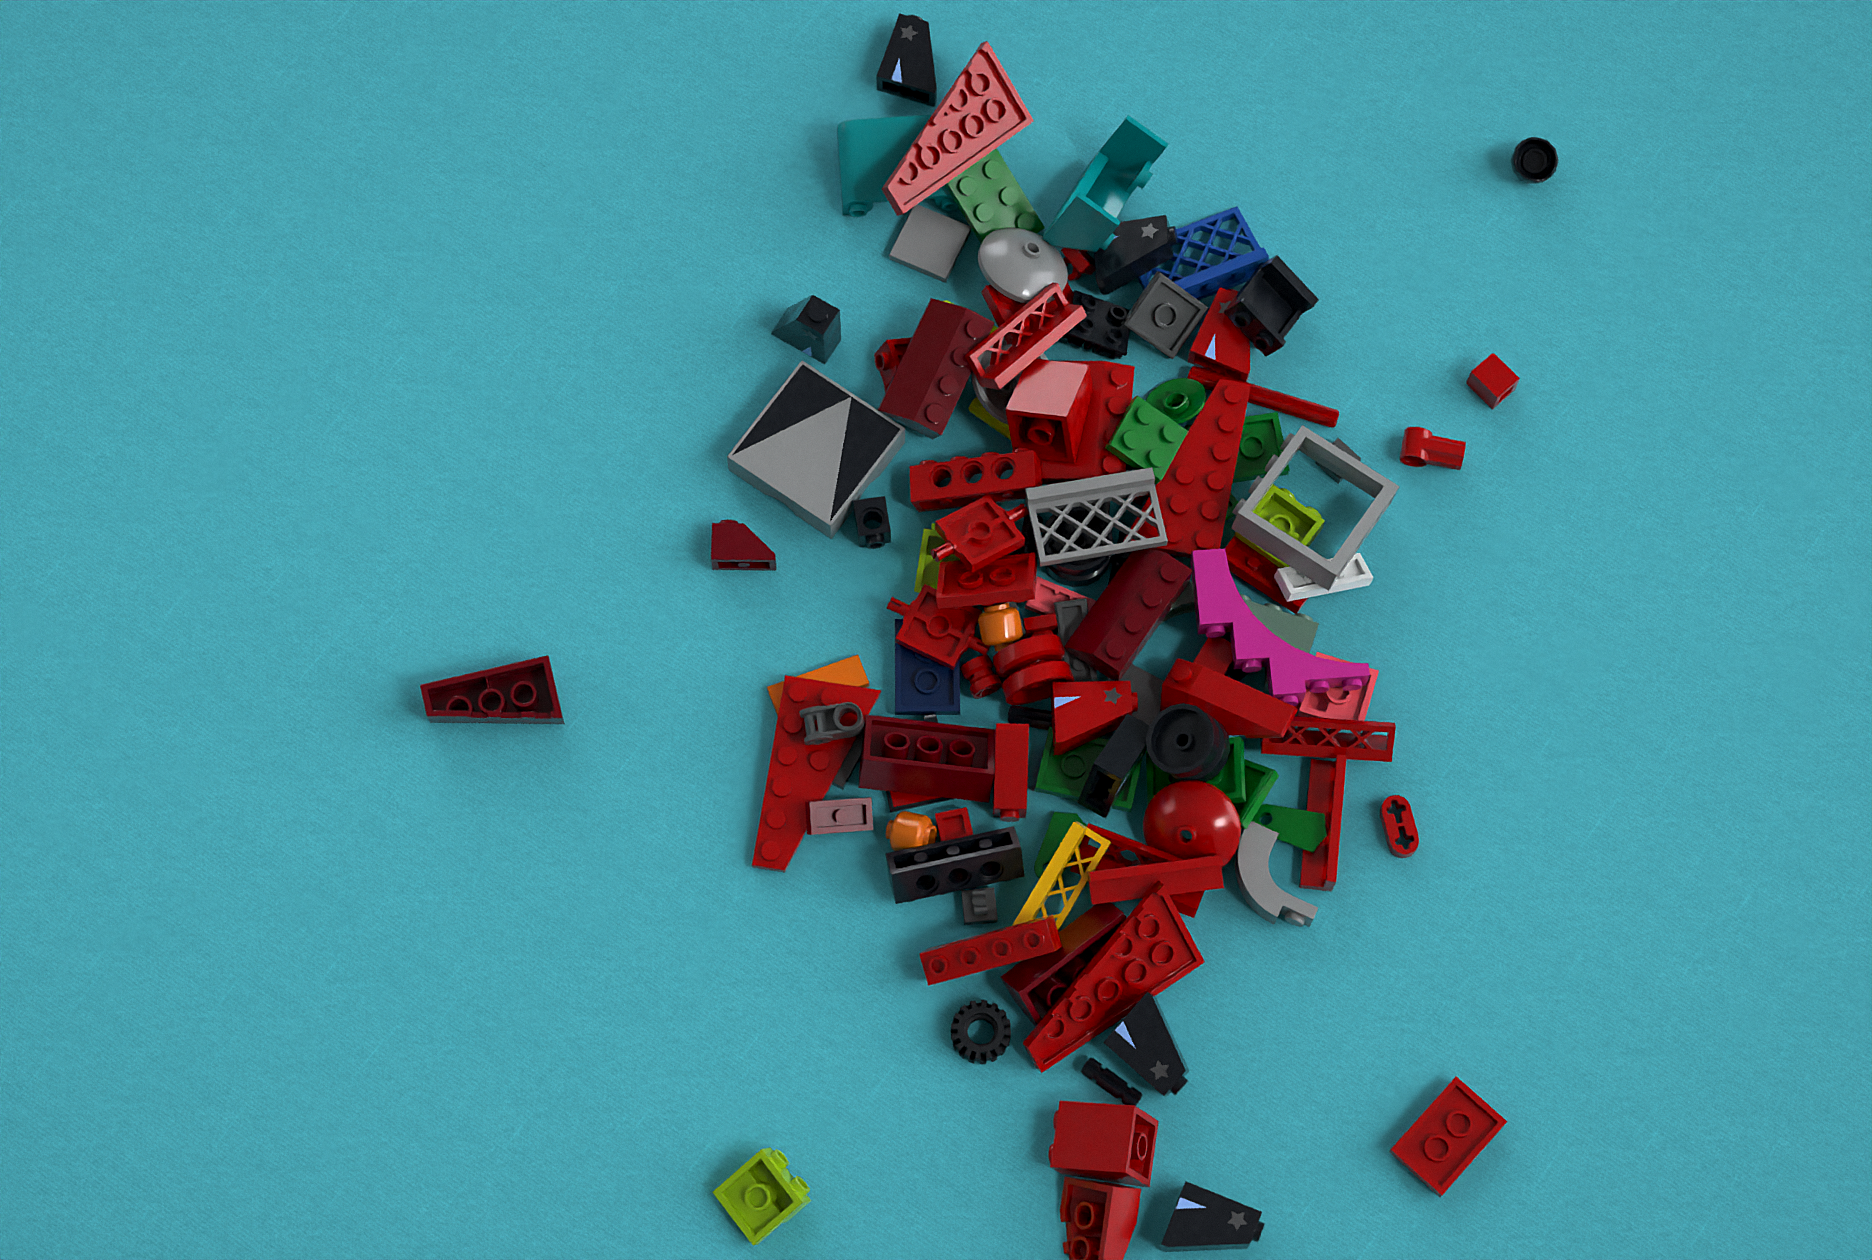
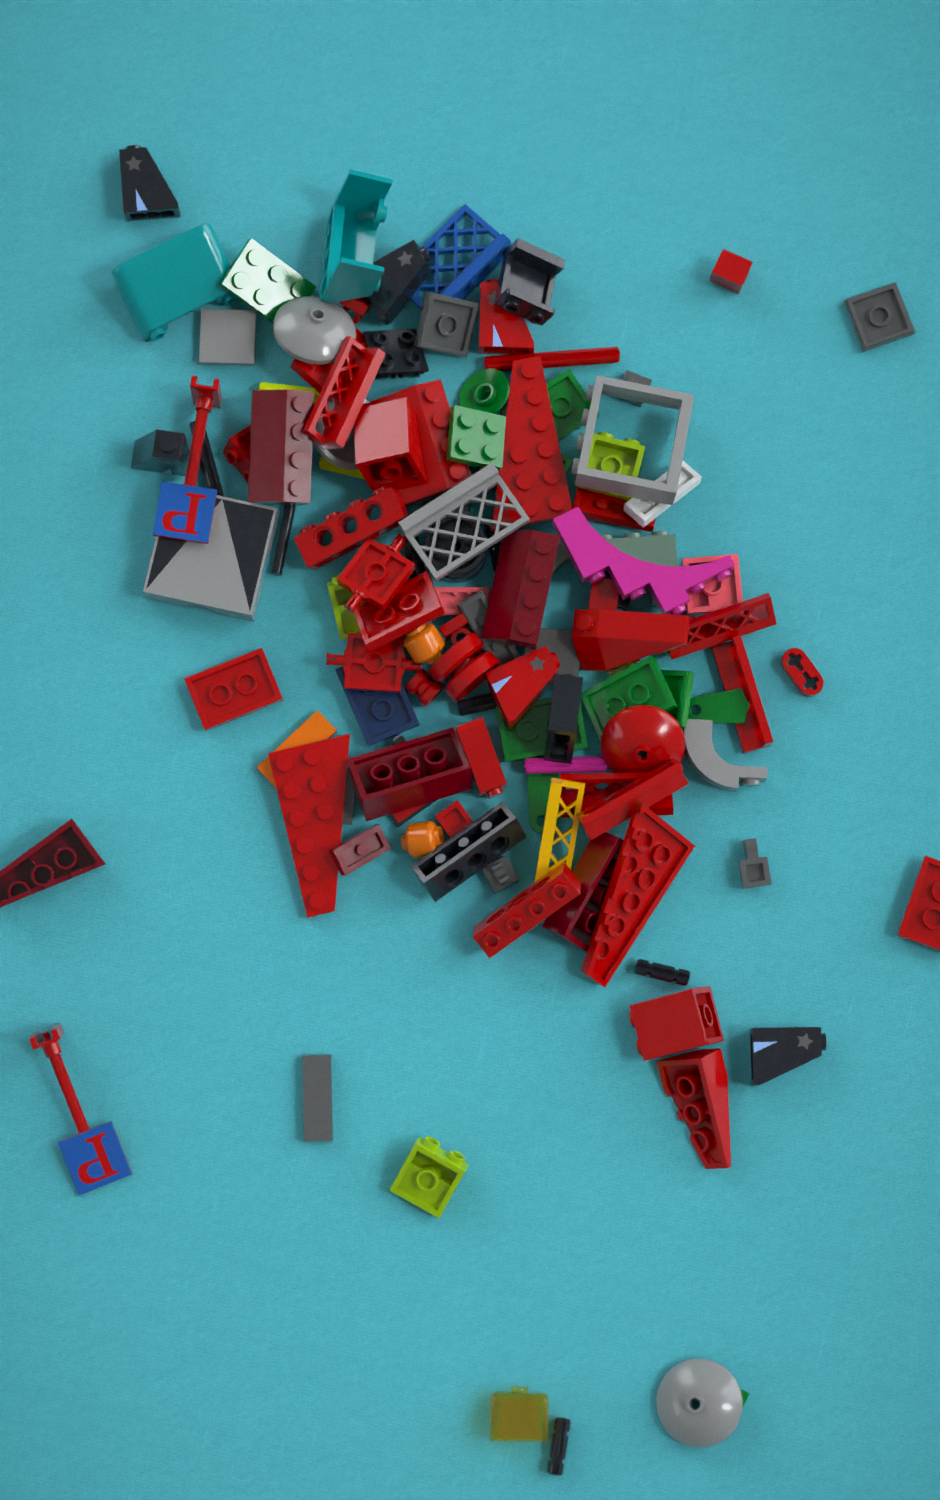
camera: 25 degrees left, 10 degrees up
(414, 1019) = (94, 1153): none -> piece
(678, 1061) = (317, 1098): none -> dark grey tile
(739, 548) = (182, 661): dark red slope -> none
(778, 597) = (233, 689): none -> red plate
(809, 390) = (185, 509): none -> piece
(829, 723) = (321, 780): dark grey piece -> none
(854, 351) = (208, 465): none -> black axle
(868, 510) = (282, 584): black brick -> none
(900, 465) = (283, 540): none -> black bar
(966, 126) = (219, 229): wing -> none
(988, 1013) = (550, 958): black tyre -> none
(1070, 808) = (578, 765): none -> dark pink axle
(1149, 1046) = (681, 932): black slope -> none
(1187, 743) = (598, 682): black wheel -> none
(1259, 1014) = (753, 870): none -> dark grey plate
(1423, 448) = (697, 351): red piece -> none
(1534, 160) = (690, 67): black hair -> none
(1635, 491) = (879, 317): none -> dark grey tile

